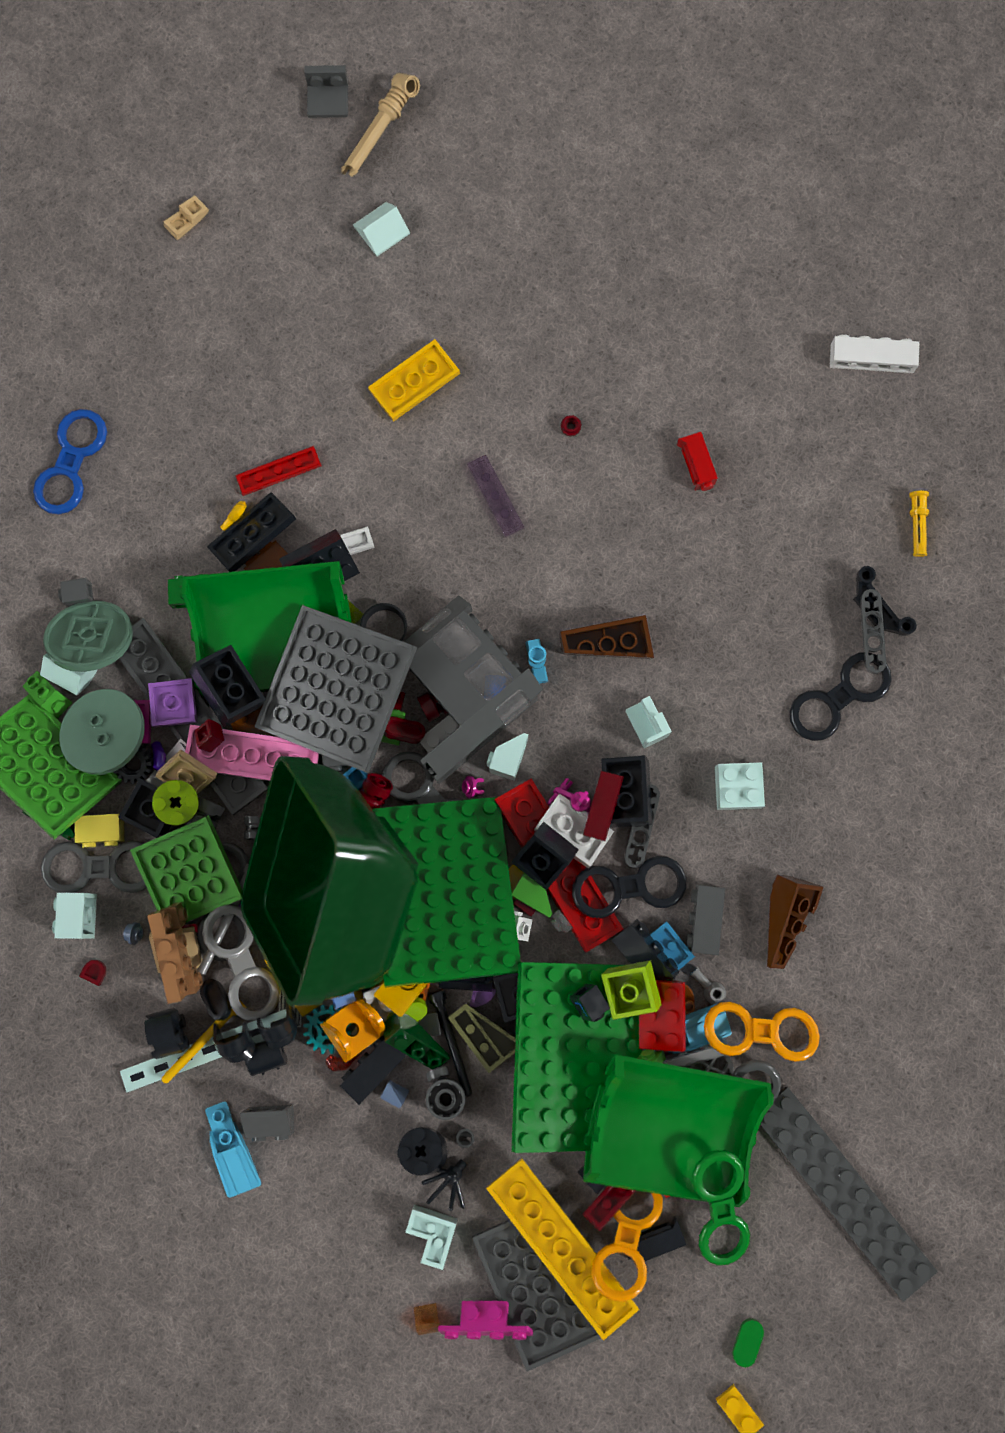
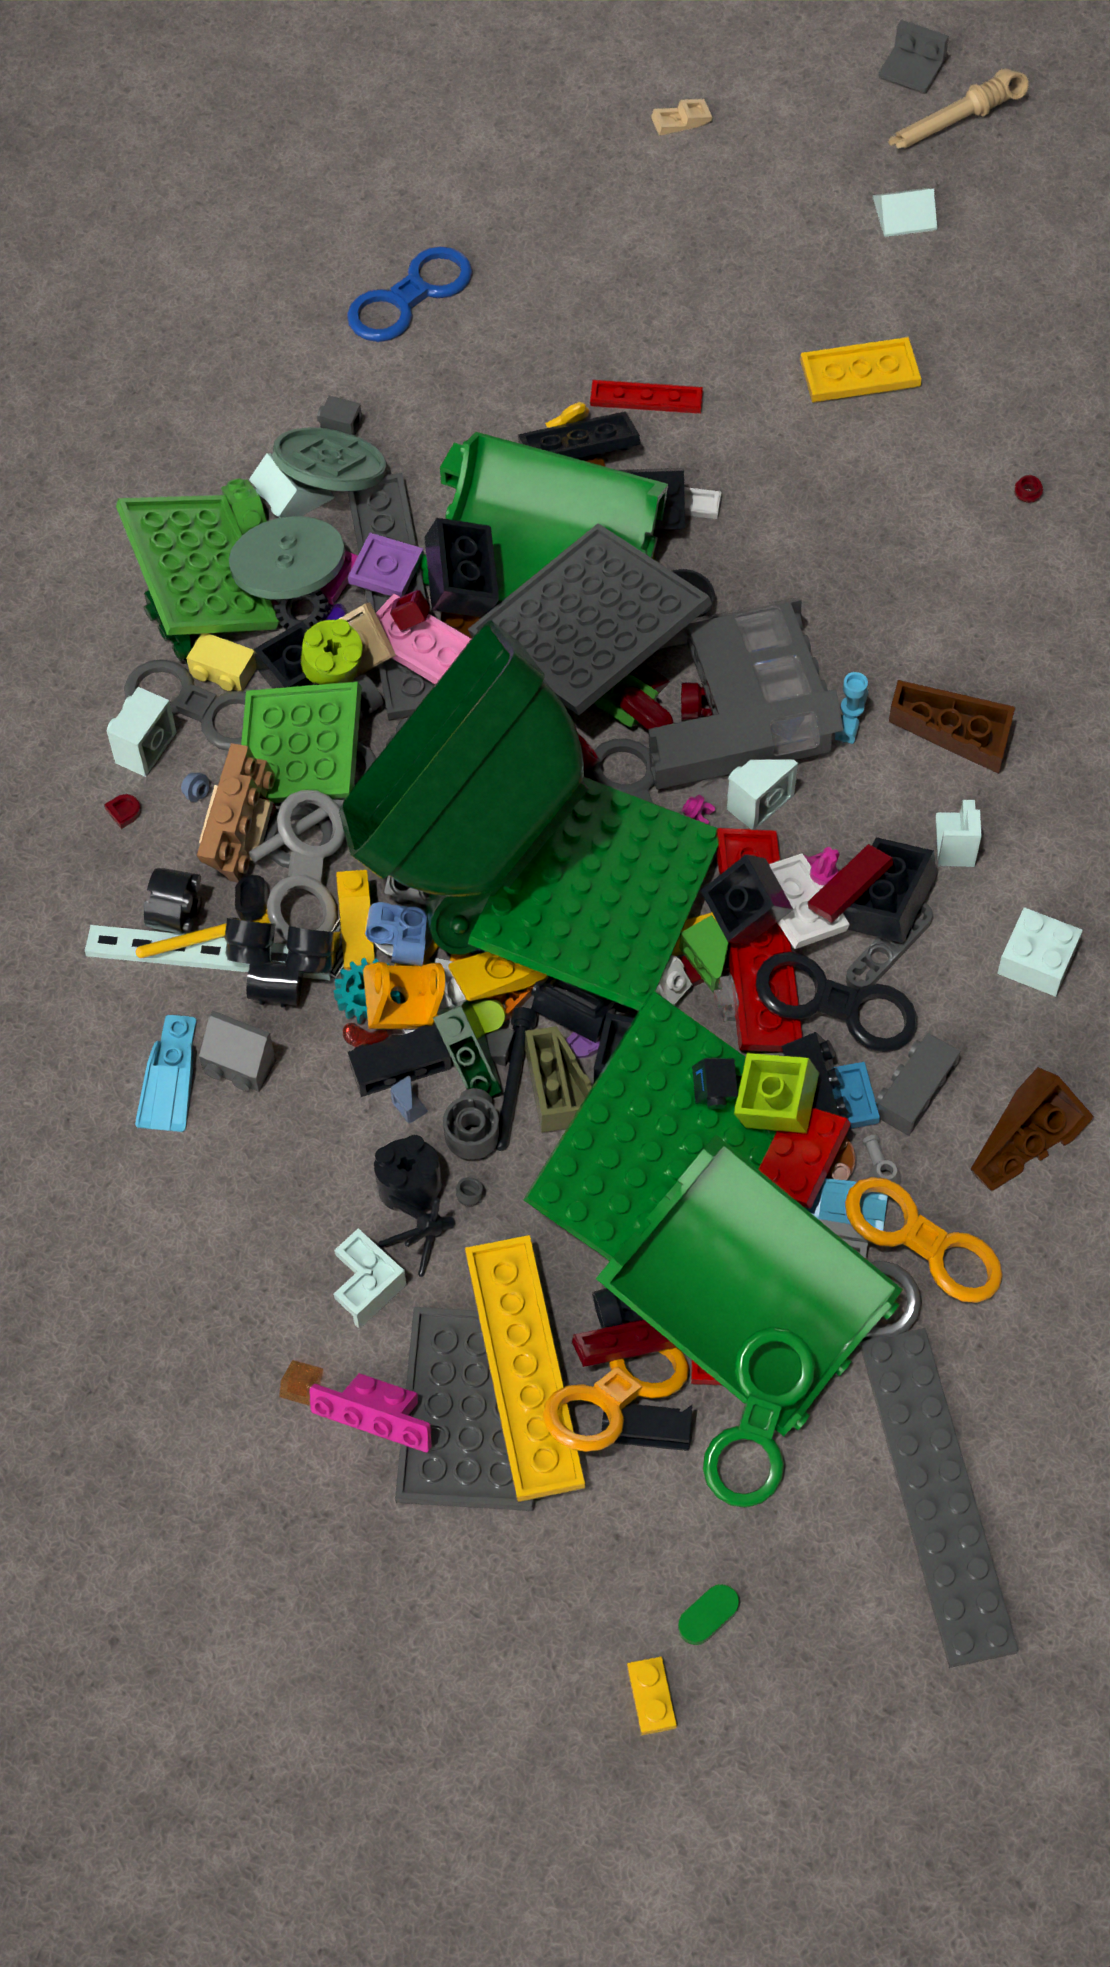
camera: 25 degrees right, 20 degrees down
(495, 496) = (895, 525): clear purple tile -> none

